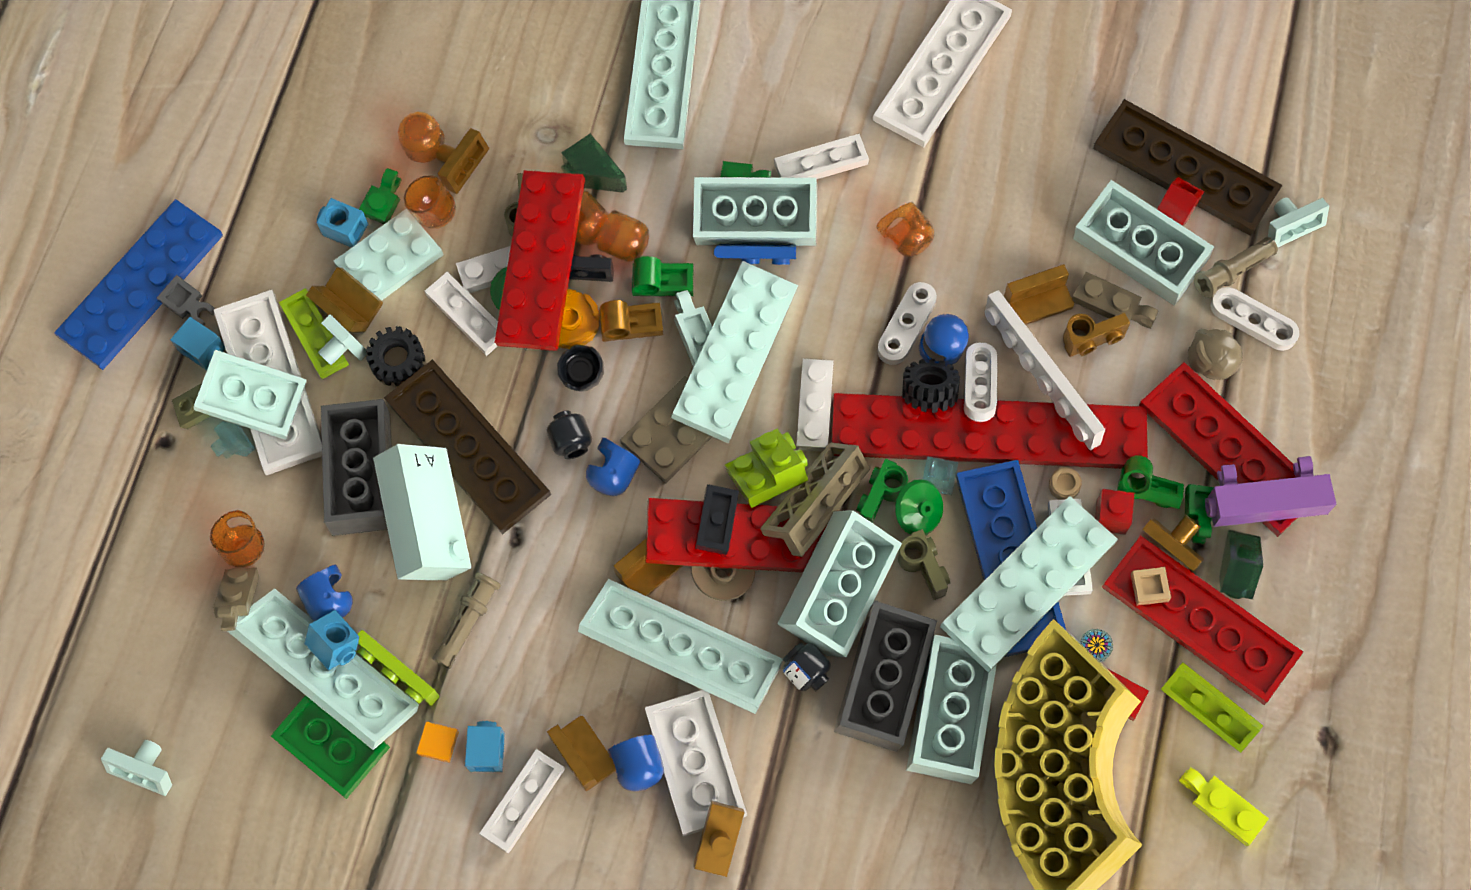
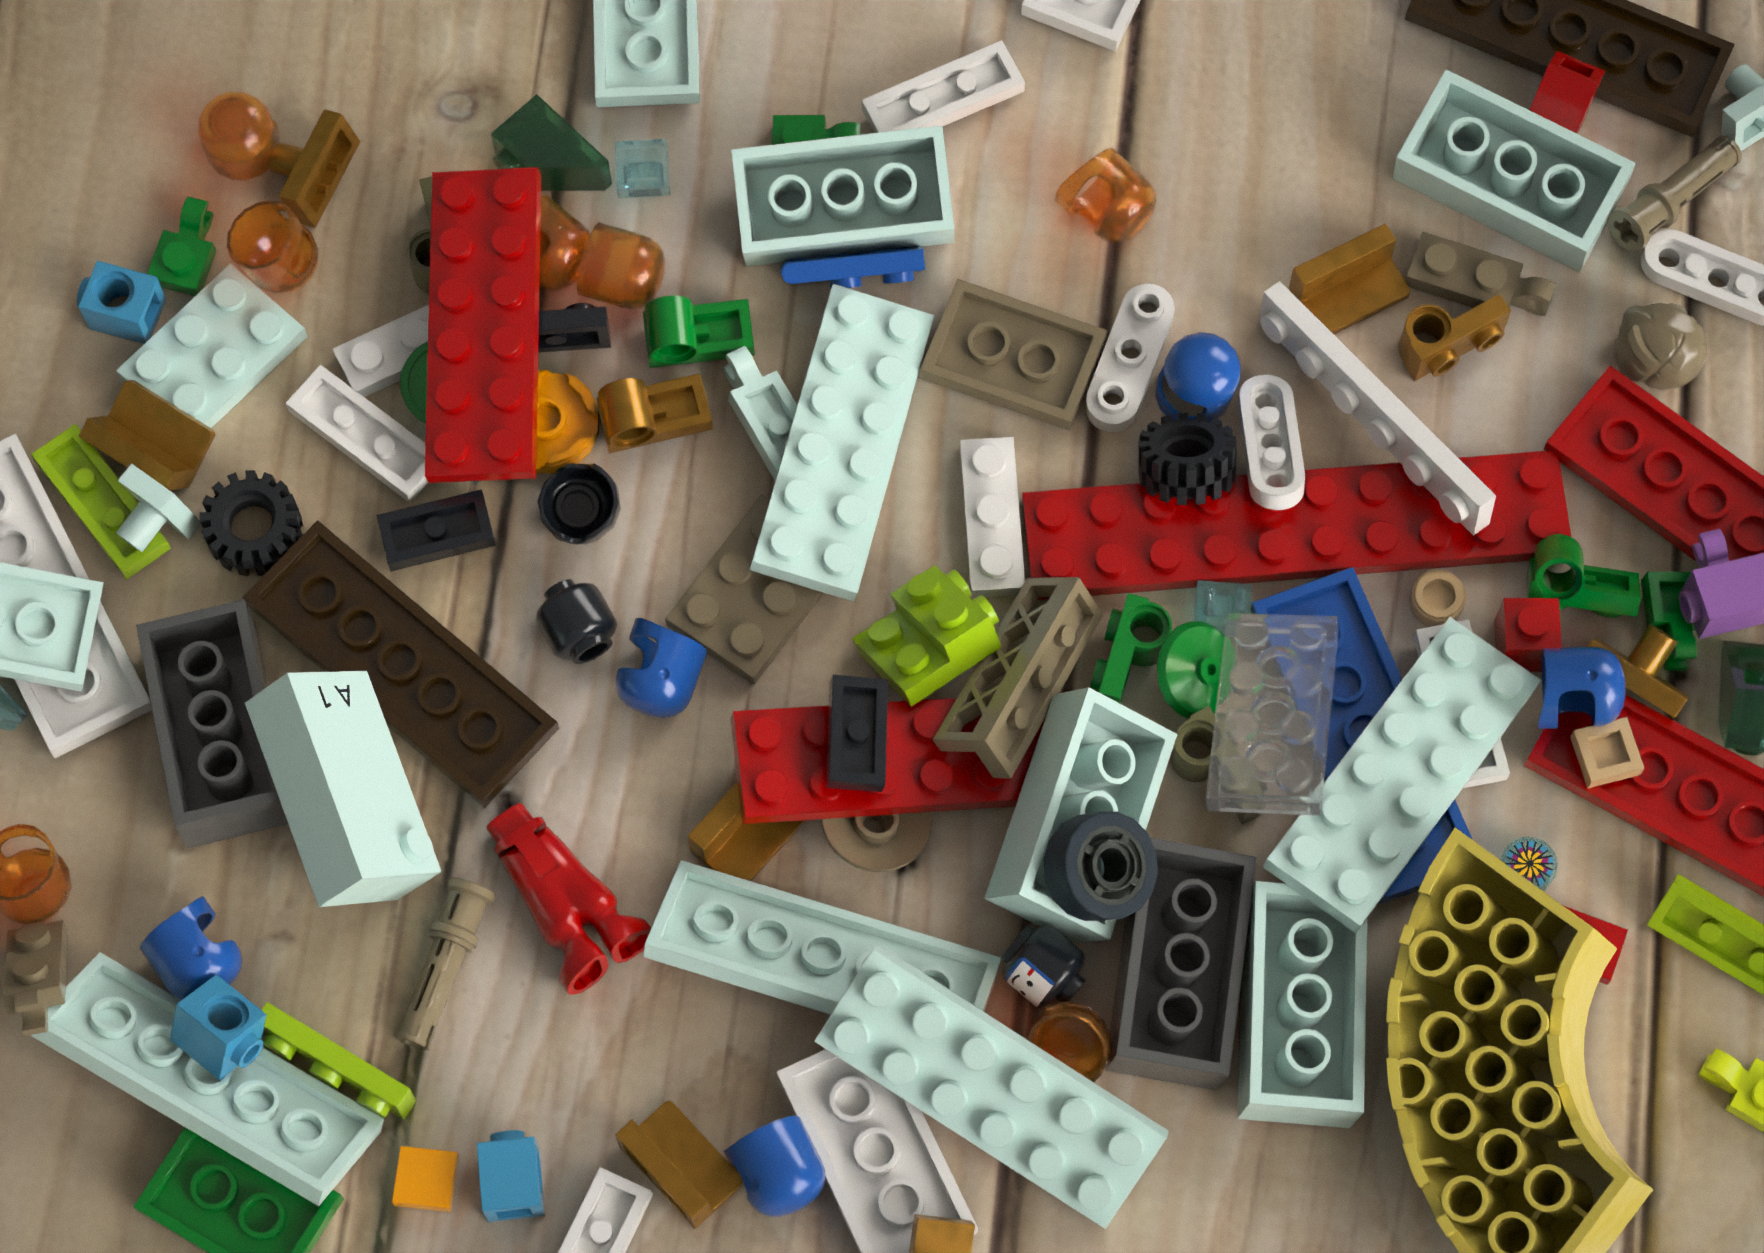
camera: 10 degrees left, 0 degrees up
(498, 373) = (436, 530): none -> black plate
(538, 592) = (564, 899): none -> red piece
(644, 182) = (642, 168): none -> clear light blue tile
(765, 733) = (991, 1086): none -> light aqua plate
(819, 707) = (1078, 1033): none -> clear orange helmet
(840, 313) = (1013, 354): none -> dark tan plate
(861, 614) = (1127, 860): none -> wheel
(958, 539) = (1273, 714): none -> clear plate
(1140, 543) = (1581, 681): none -> blue helmet

